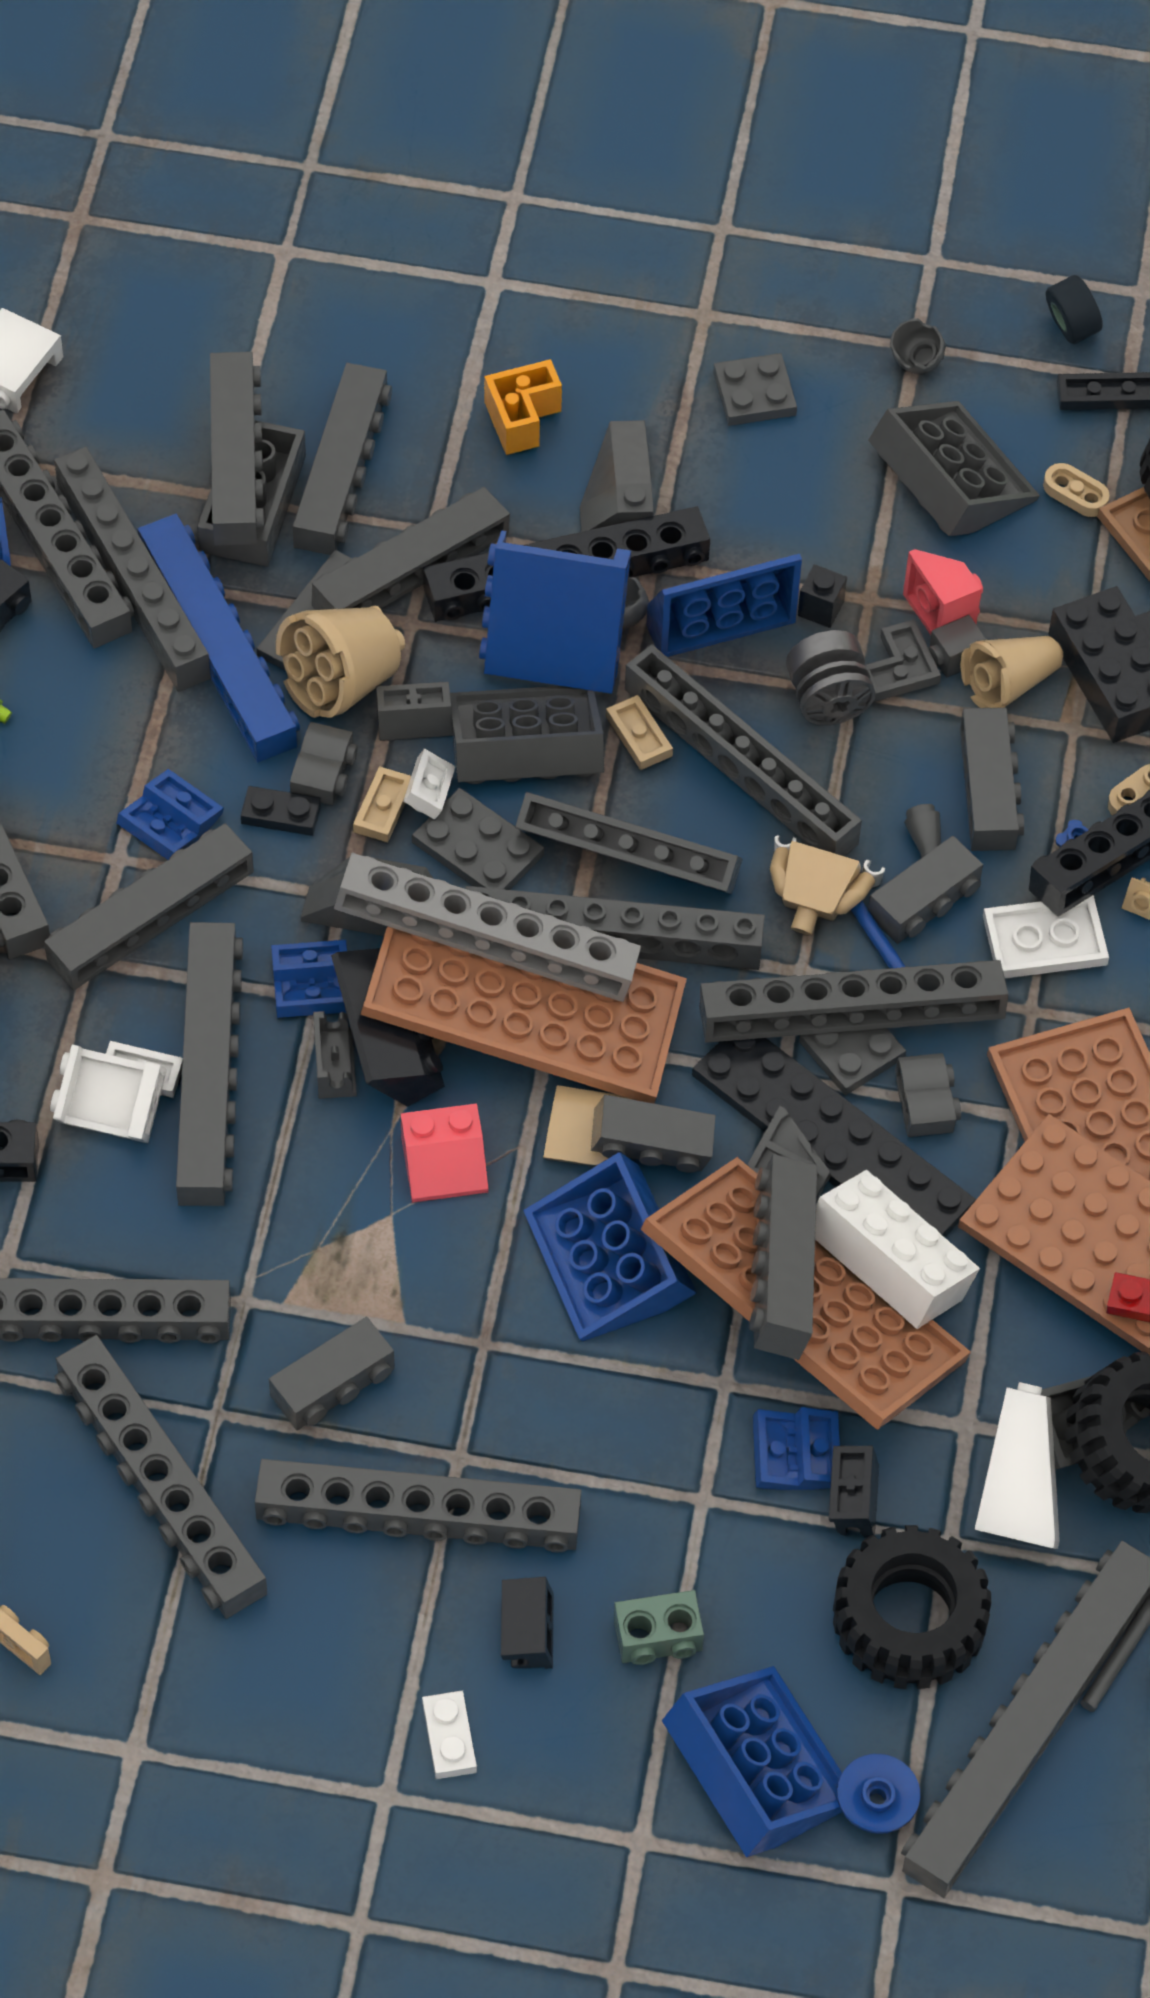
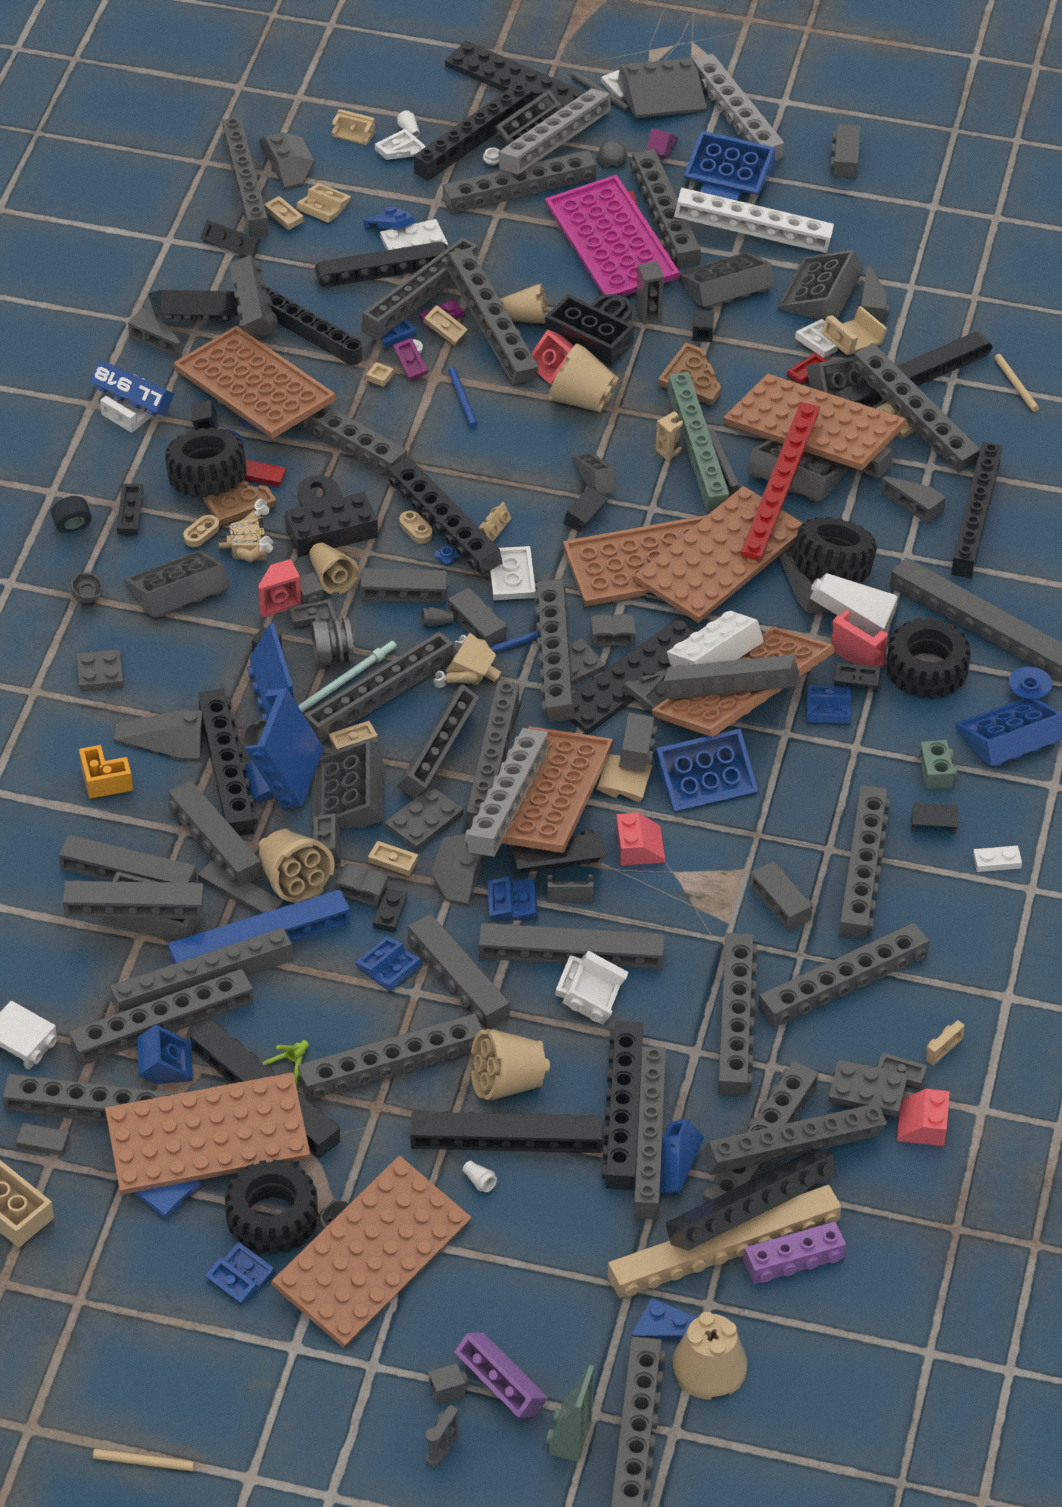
camera: 85 degrees left, 10 degrees down
(429, 784) = (380, 832): white plate -> none
(827, 753) = (375, 656): none -> light aqua bar
(949, 1451) = (856, 644): none -> coral panel
(1066, 552) = (248, 536): none -> tan torso

